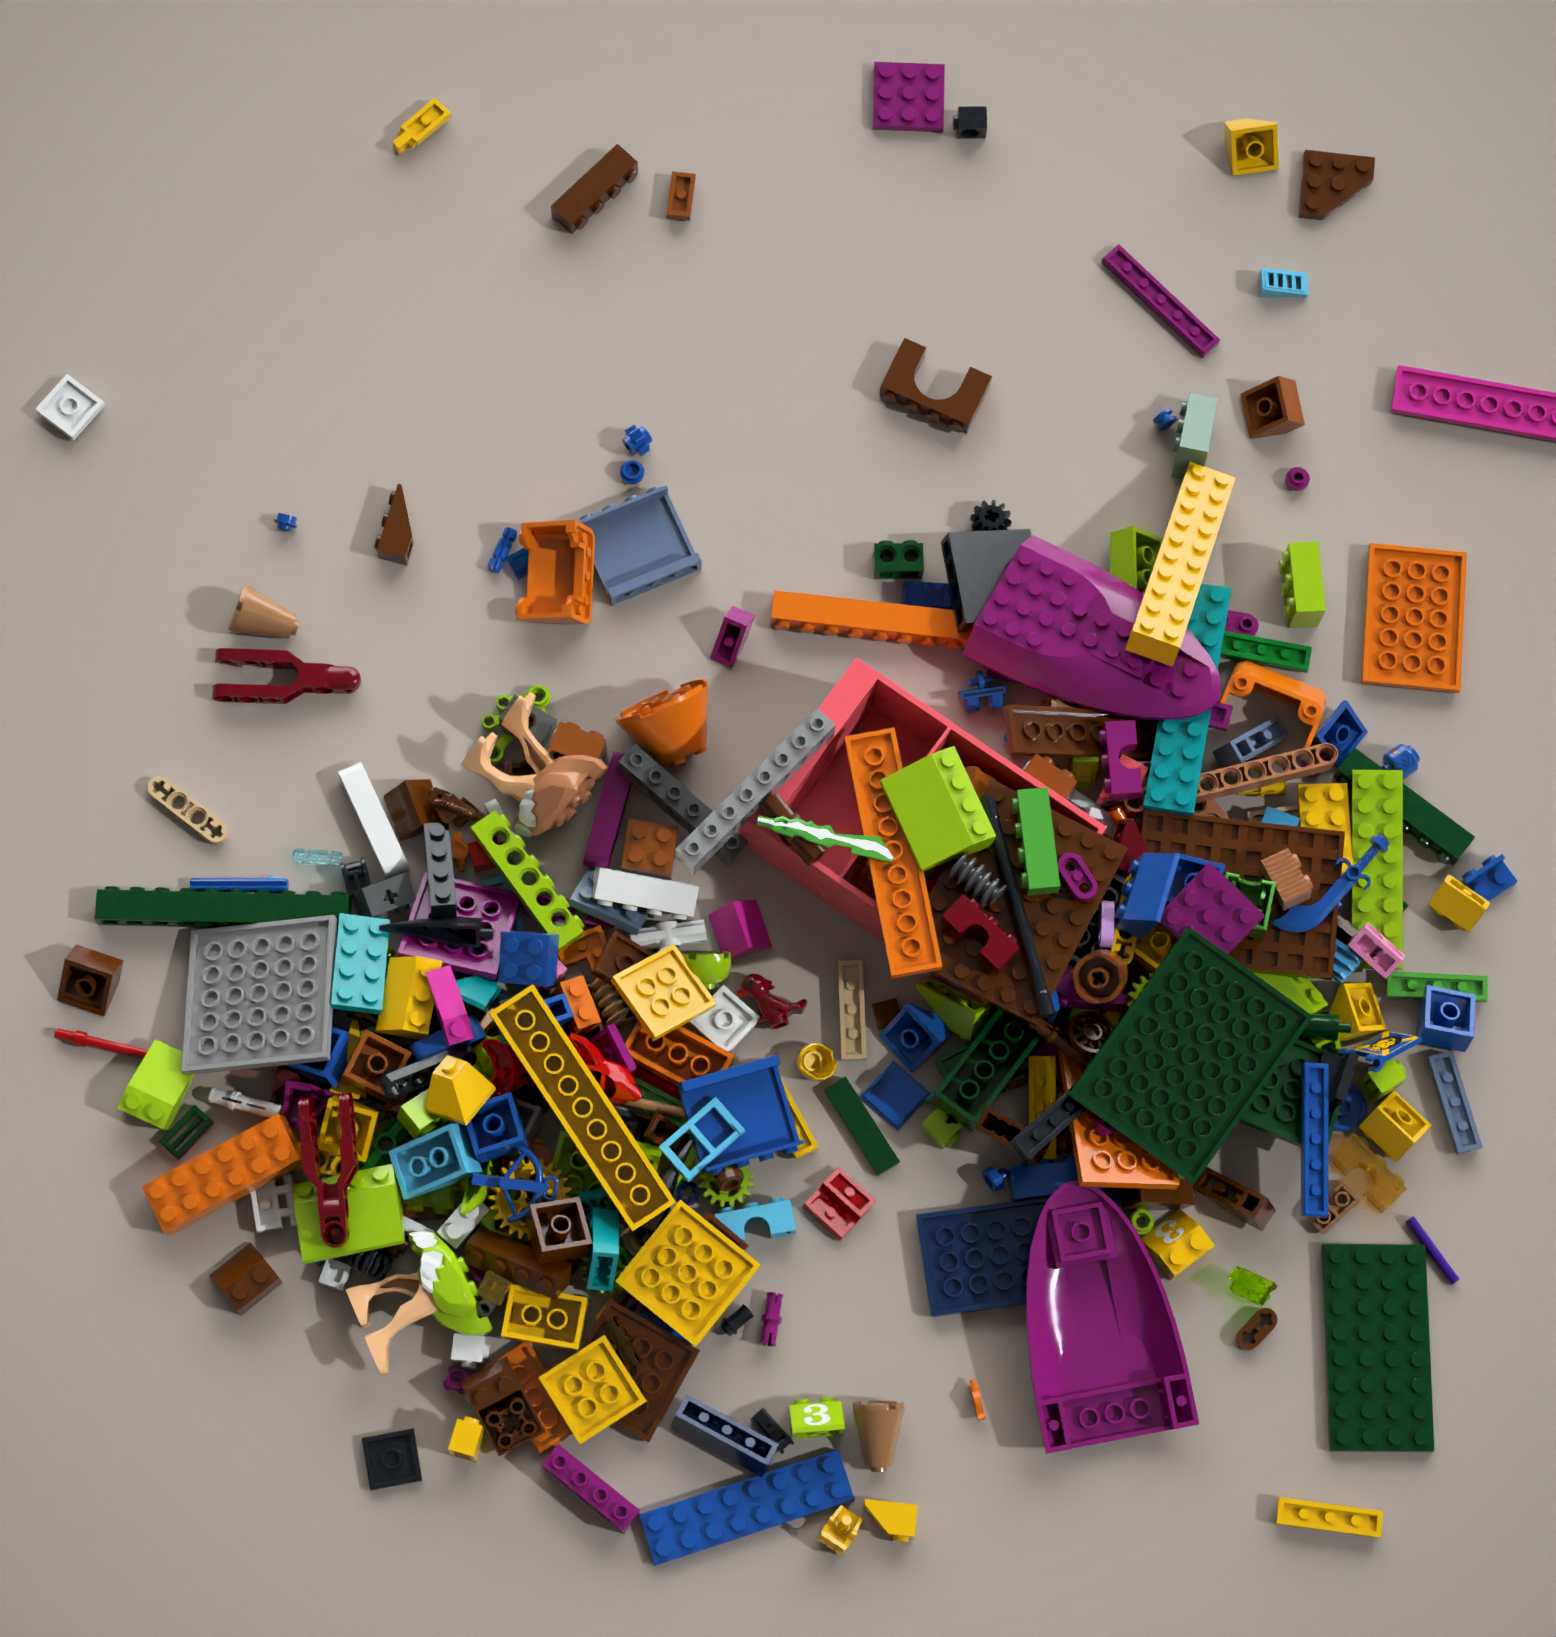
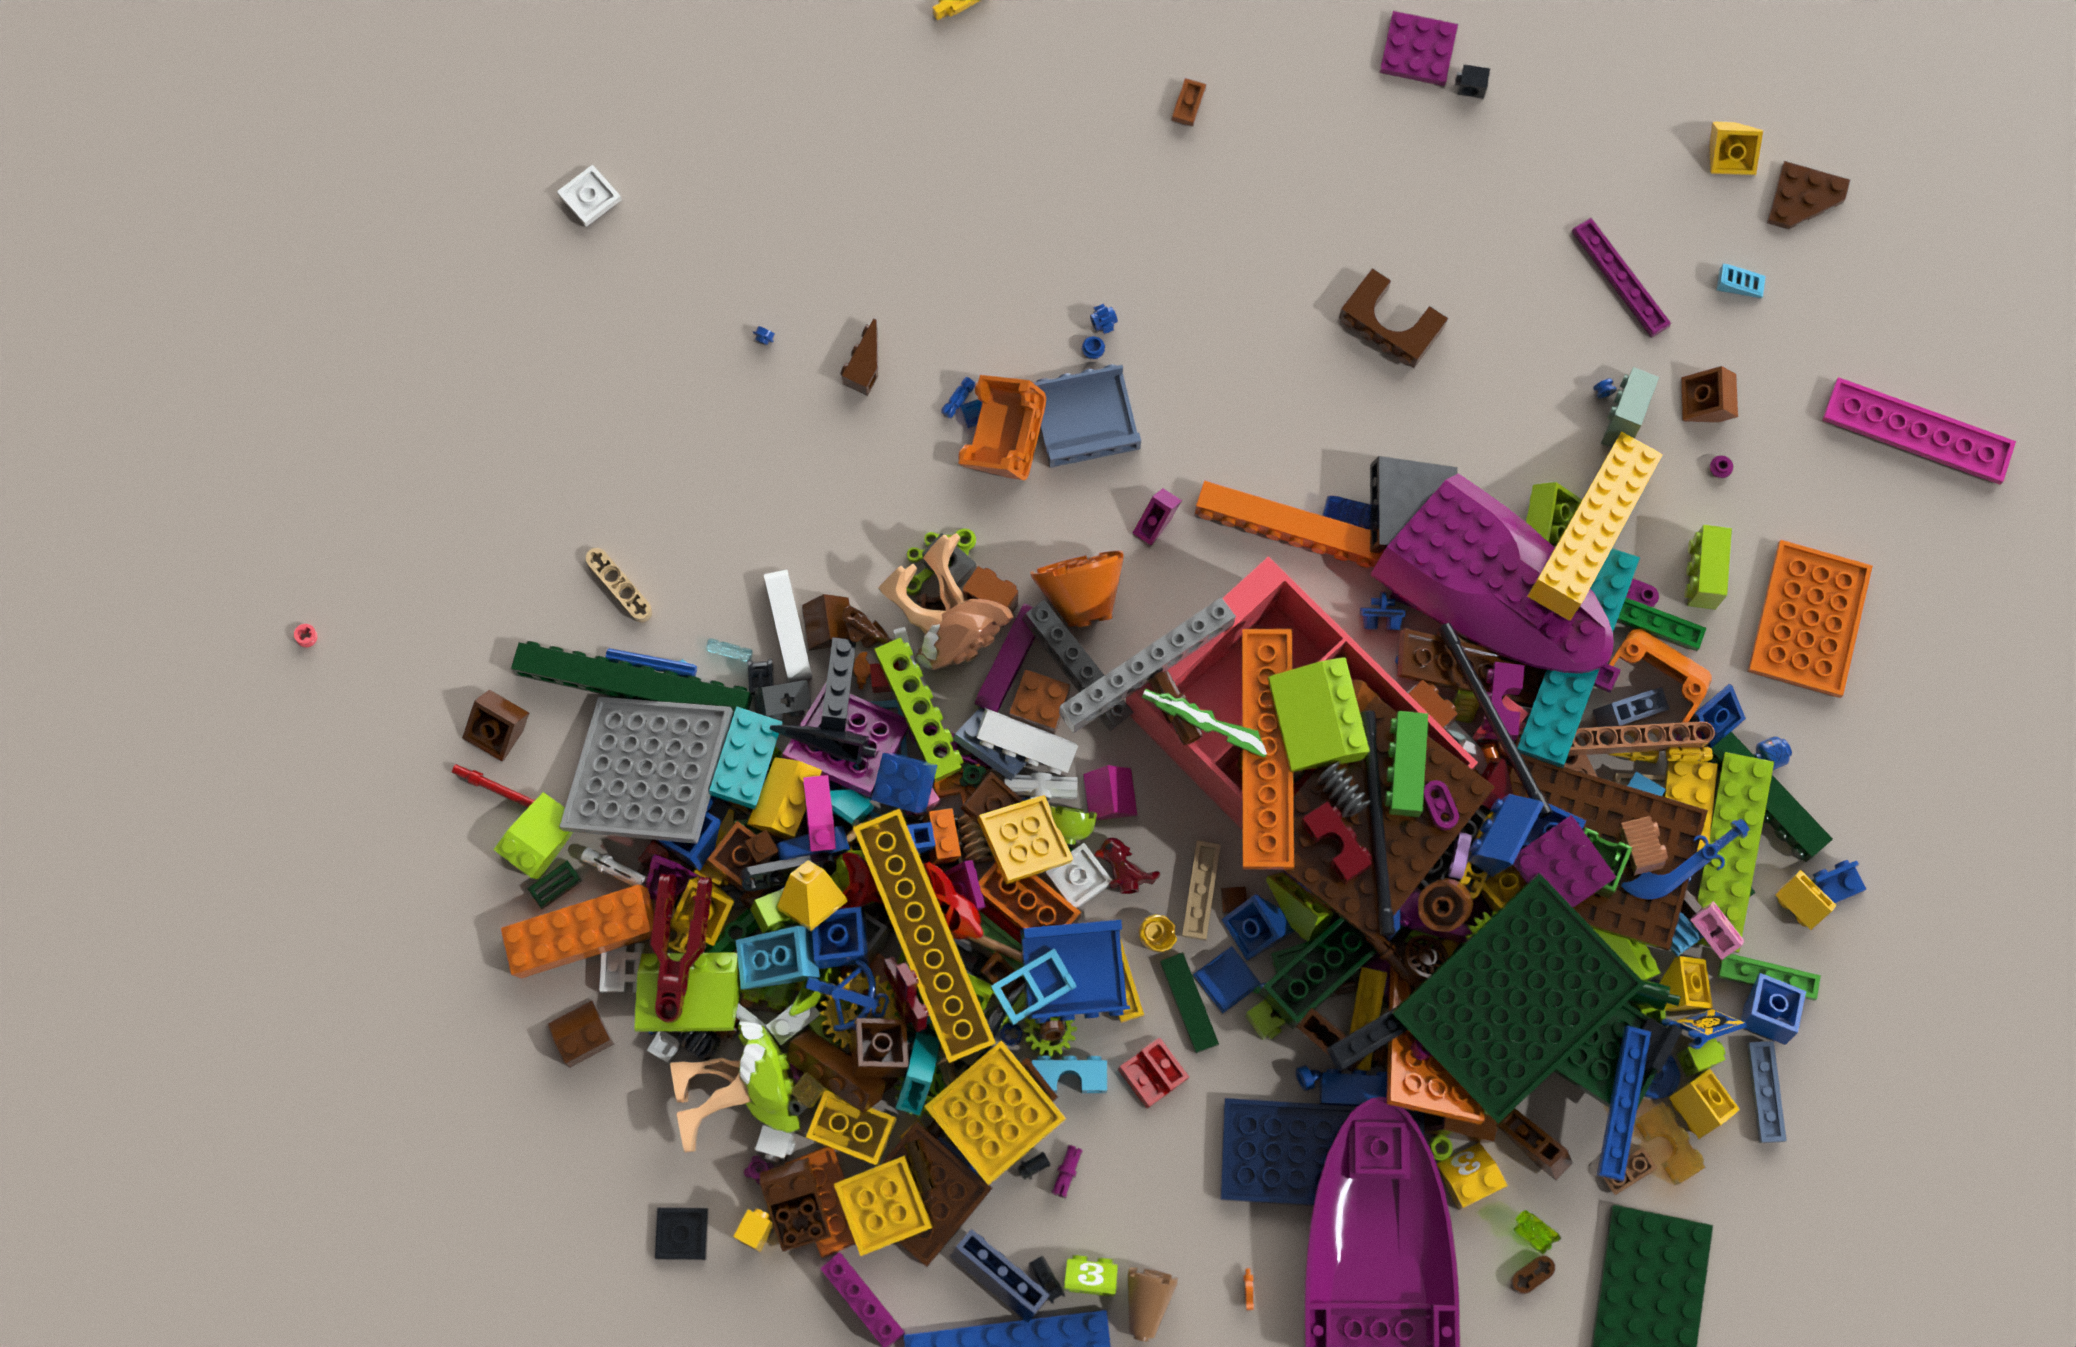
camera: 15 degrees right, 0 degrees up
(262, 616) = (722, 417): medium nougat cone -> none
(311, 678) = (757, 483): dark red piece -> none
(395, 1051) = (761, 846): none -> reddish brown plate
(572, 1162) = (905, 994): none -> dark red plate
(590, 933) = (968, 770): none -> dark green plate
(595, 189) = (1110, 81): reddish brown brick -> none
(898, 567) = (1326, 480): dark green brick -> none
(995, 514) = (1424, 445): black gear -> none
(1060, 711) = (1454, 645): none -> black piece
(1316, 778) = (1689, 754): none -> yellow axle
(1432, 1250) = (1719, 1232): dark purple bar -> none

